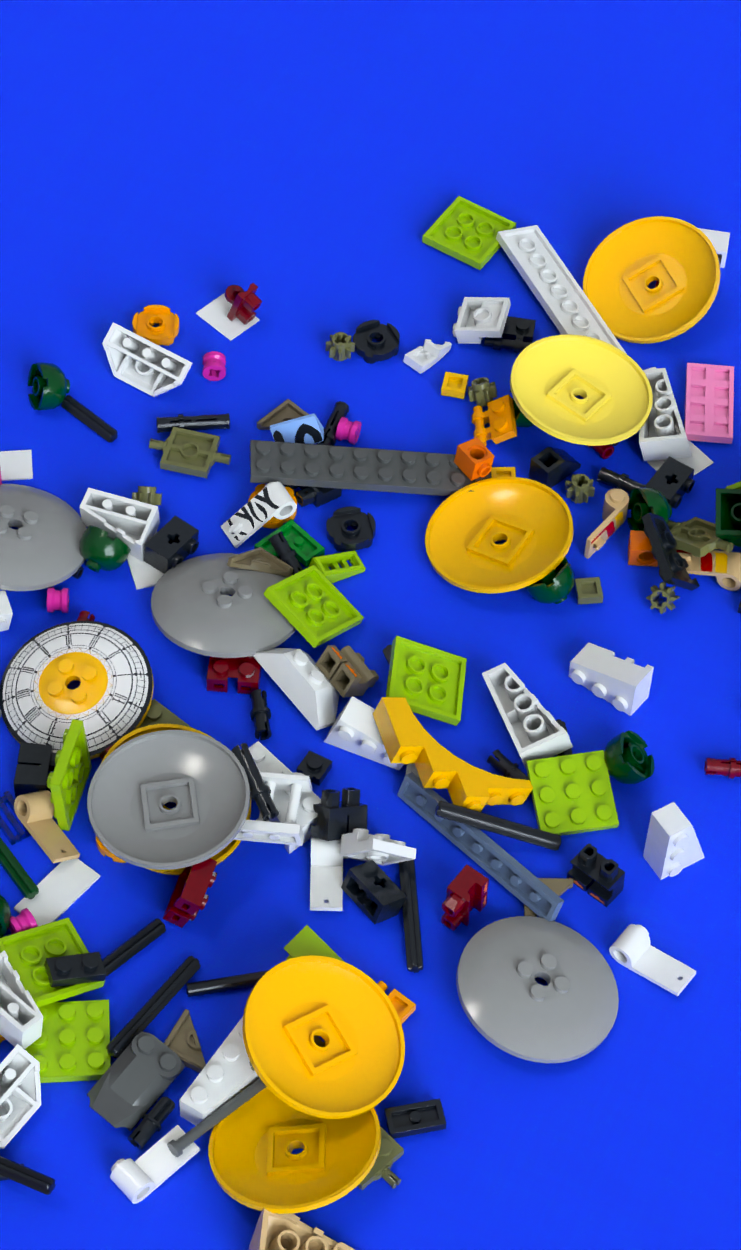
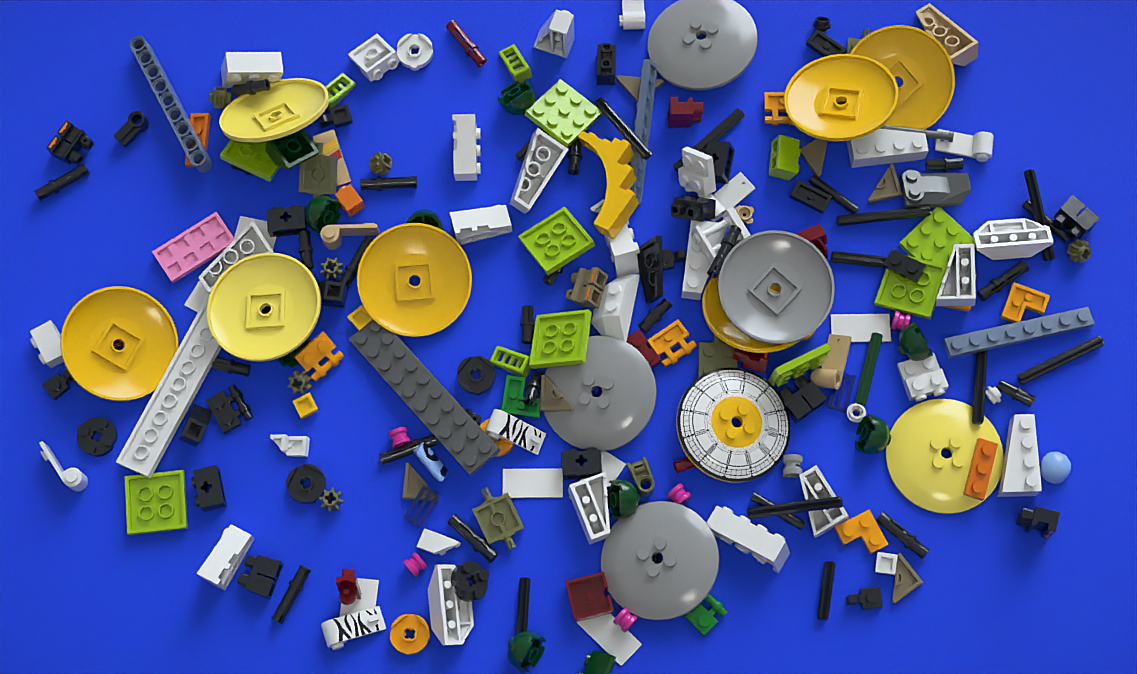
camera: 125 degrees left, 20 degrees up
(41, 465) = (588, 597): none -> dark red piece
(108, 584) = (641, 473): none -> olive piece
(147, 495) = (559, 510): olive gear -> none
(166, 387) = (478, 577): none -> black plate
(200, 502) = (533, 483): none -> white piece
(205, 291) = (354, 625): none -> white door
(218, 393) = (436, 543): none -> white slope
(224, 707) = (668, 338): none -> light orange plate
(247, 955) = (811, 196): none -> black plate
(259, 395) = (430, 492): none -> clear blue tile
(286, 276) = (291, 594): none -> black pin
(290, 872) = (745, 210): none -> tan plate
(310, 741) = (651, 268): none -> black wing
(319, 258) = (261, 566): none -> black hips
(362, 240) = (226, 557): none -> white wedge
(362, 604) = (527, 324): none -> black axle
(443, 272) = (215, 497): none -> black brick
(448, 1137) = (822, 23): none -> black plate
(474, 459) = (372, 341): orange brick -> none
(481, 318) = (237, 427): white plate -> none
(511, 286) = (195, 425): none -> black slope
(512, 628) = (480, 223): none -> white wedge
(553, 186) = (71, 477): none -> white door
(572, 222) = (107, 440): none -> black plate
(580, 531) = (352, 268): none -> black pin
(588, 590) = (407, 208): olive plate -> none
(640, 587) = (388, 183): none -> black pin
(663, 545) = (351, 175): black wing -> none
(671, 788) = (519, 73): none -> lime slope

